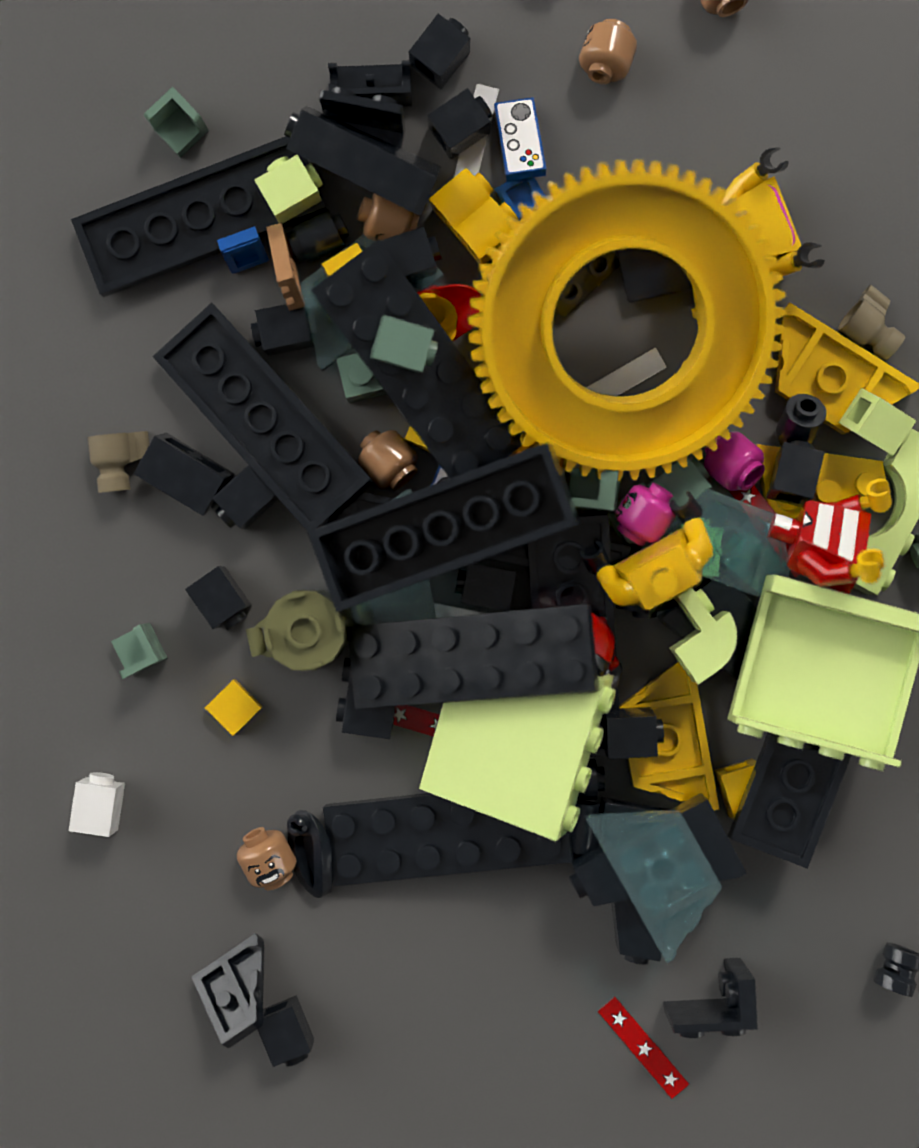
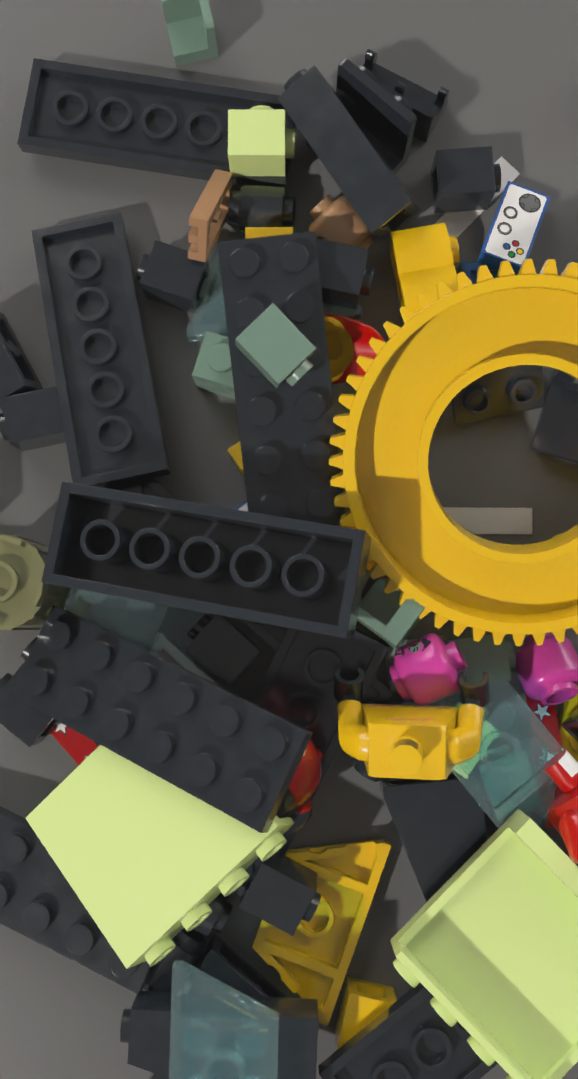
camera: 35 degrees right, 5 degrees down
(243, 250) = (180, 179): blue tile -> none
(388, 459) = (199, 462): medium nougat head -> none
(440, 50) = (484, 101): black brick -> none
(710, 643) = (419, 846): yellowish green brick -> none

